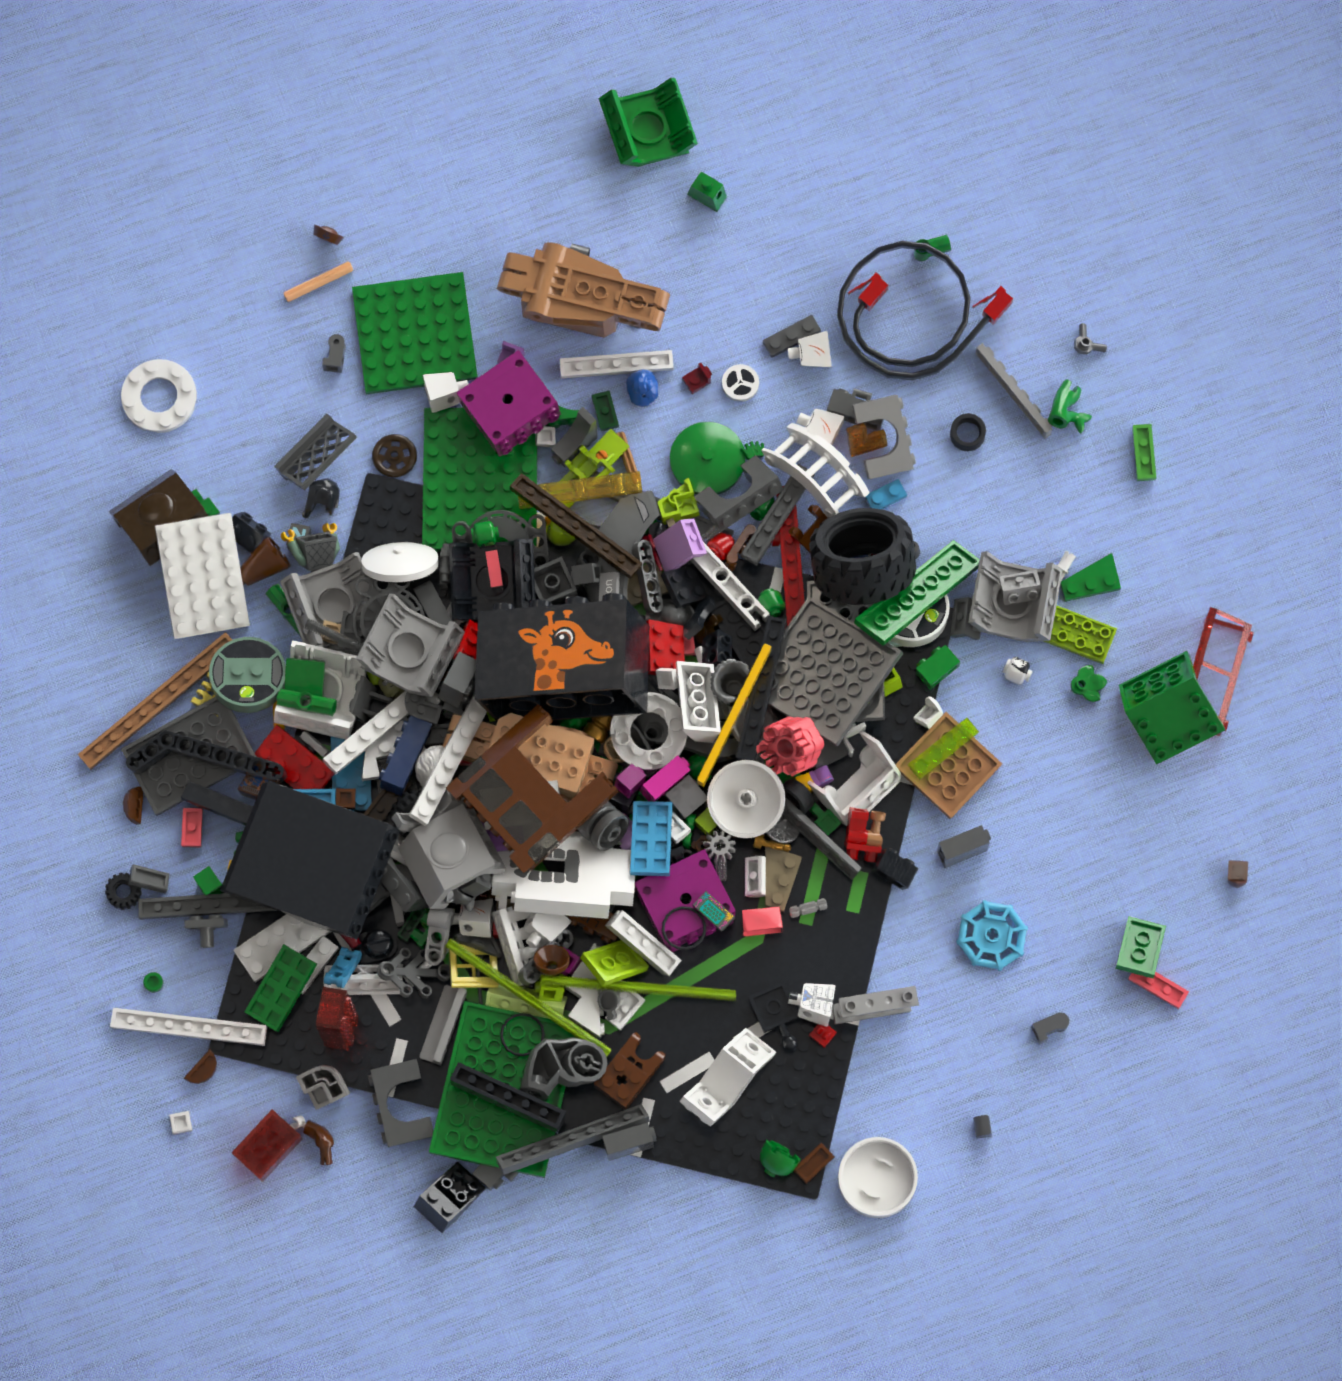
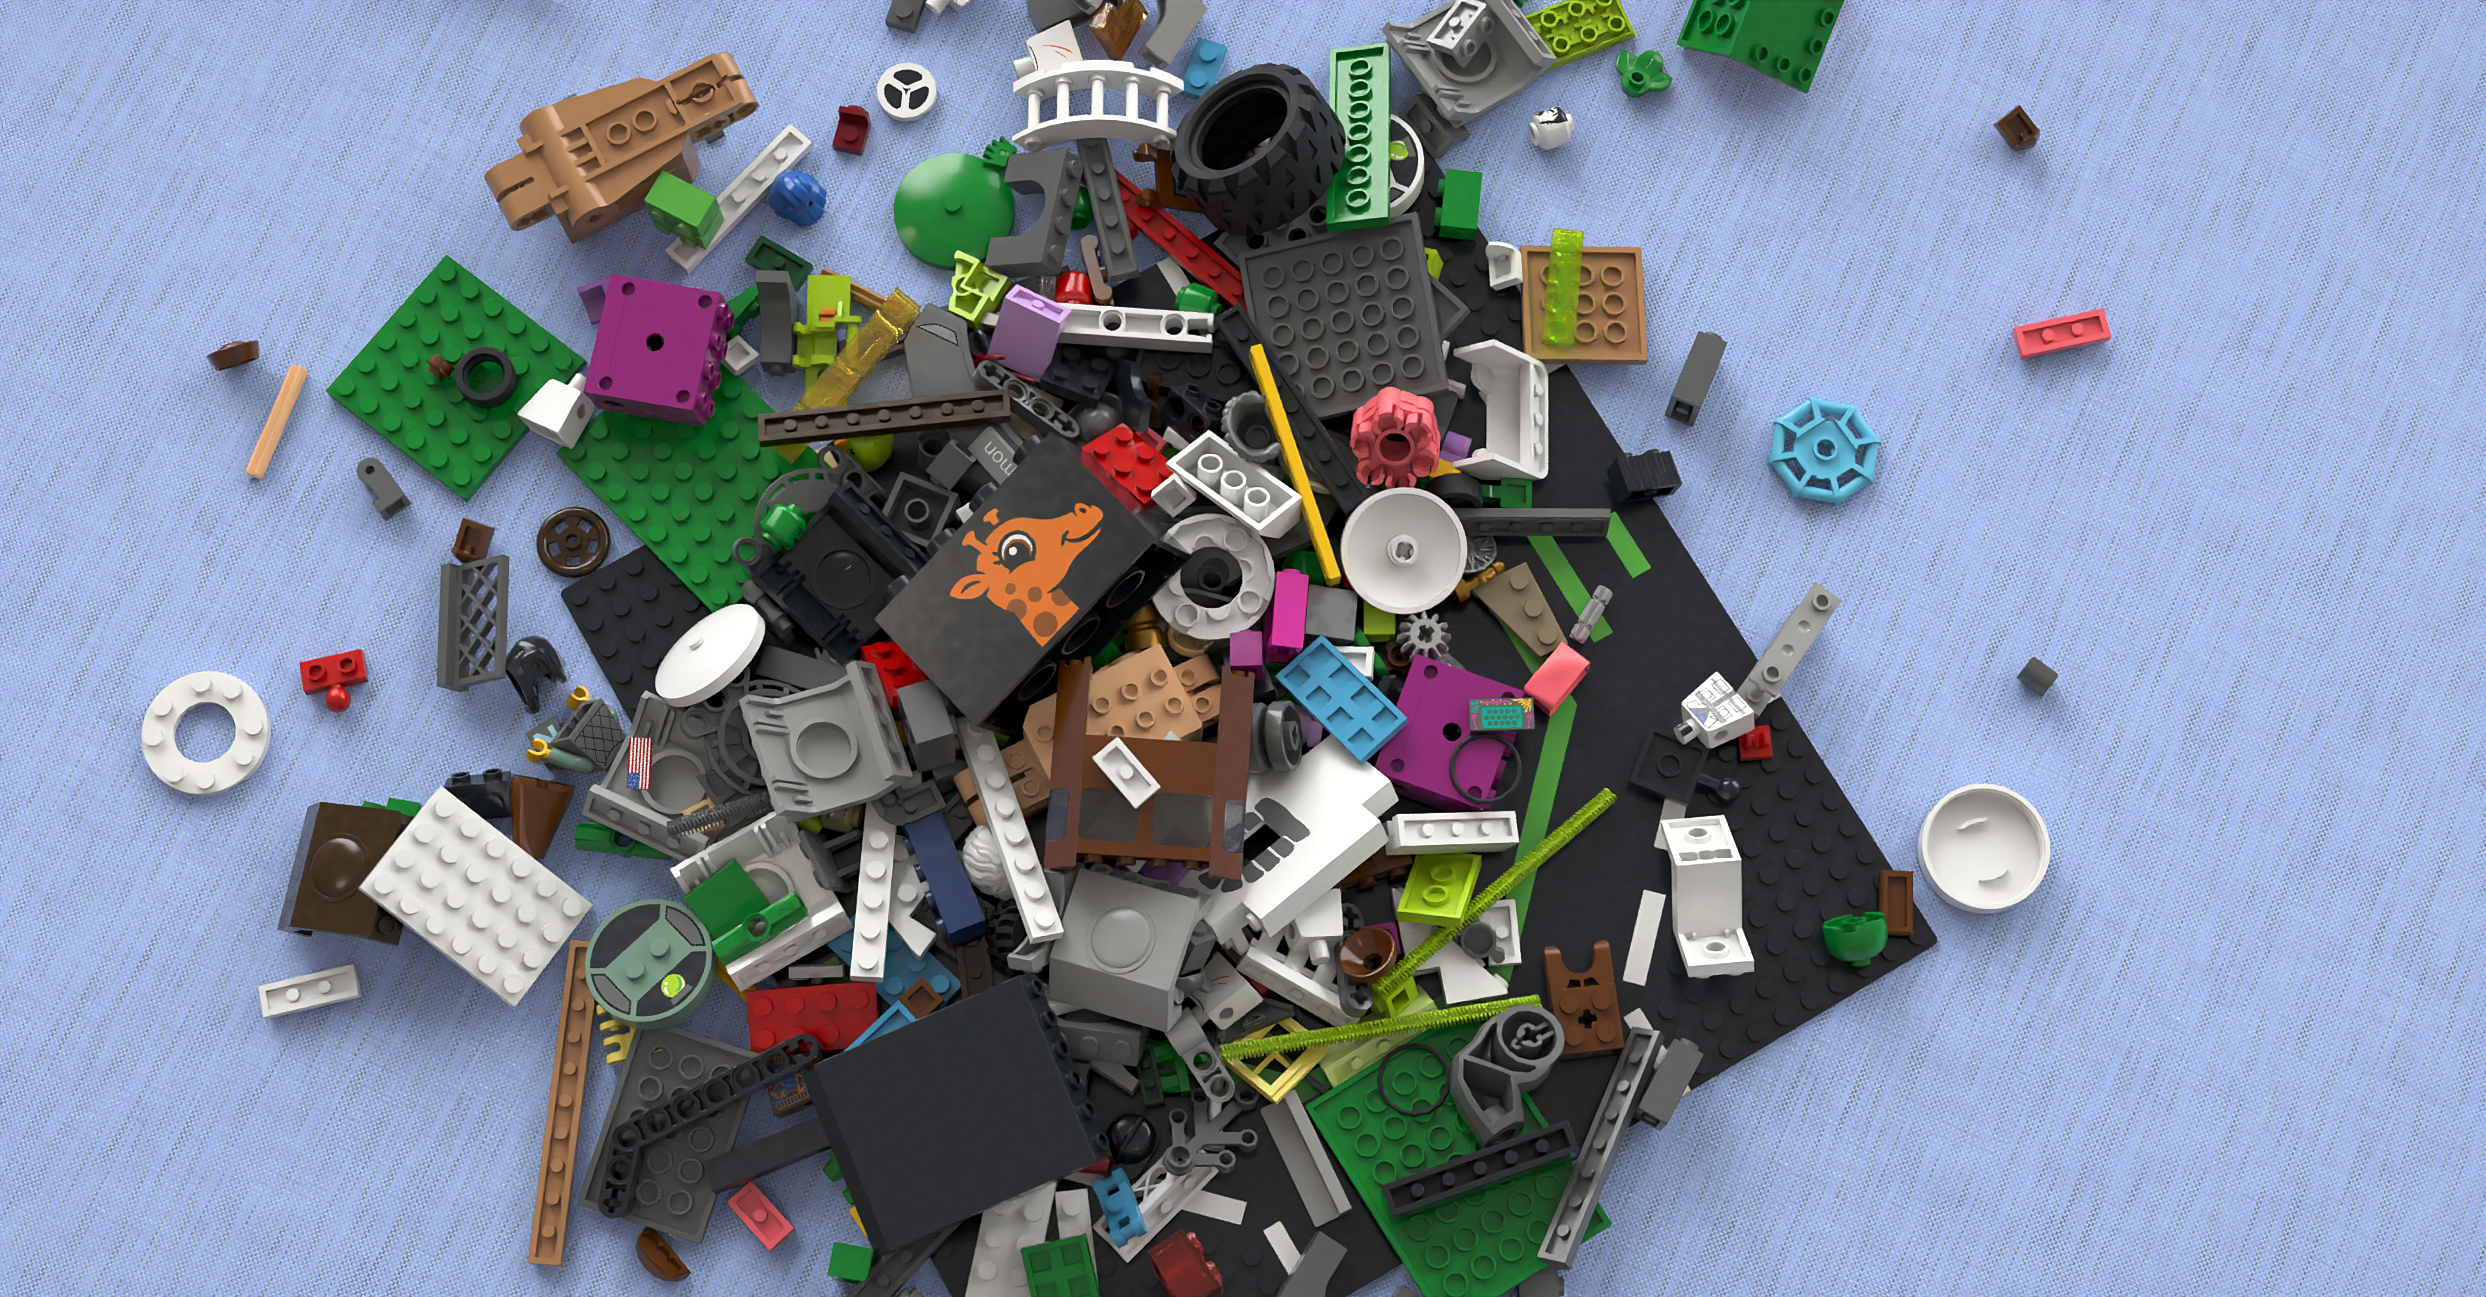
camera: 45 degrees left, 0 degrees up
(97, 551) = (309, 991): none -> white plate
(236, 419) = (333, 674): none -> red plate
(326, 581) = (639, 763): none -> sticker
(350, 415) = (472, 541): none -> reddish brown plate
(409, 322) = (439, 367): none -> reddish brown plate
(425, 359) = (478, 356): none -> black tyre
(494, 568) = (834, 558): coral piece -> none
(514, 778) = (1126, 773): none -> white plate
(582, 348) = (683, 210): none -> bright green piece
(755, 876) = (1496, 634): white brick -> none
(859, 837) = (1574, 476): red hips -> none
(1049, 1025) = (1991, 492): dark grey leg -> none
(1140, 947) = (2002, 308): plate -> none

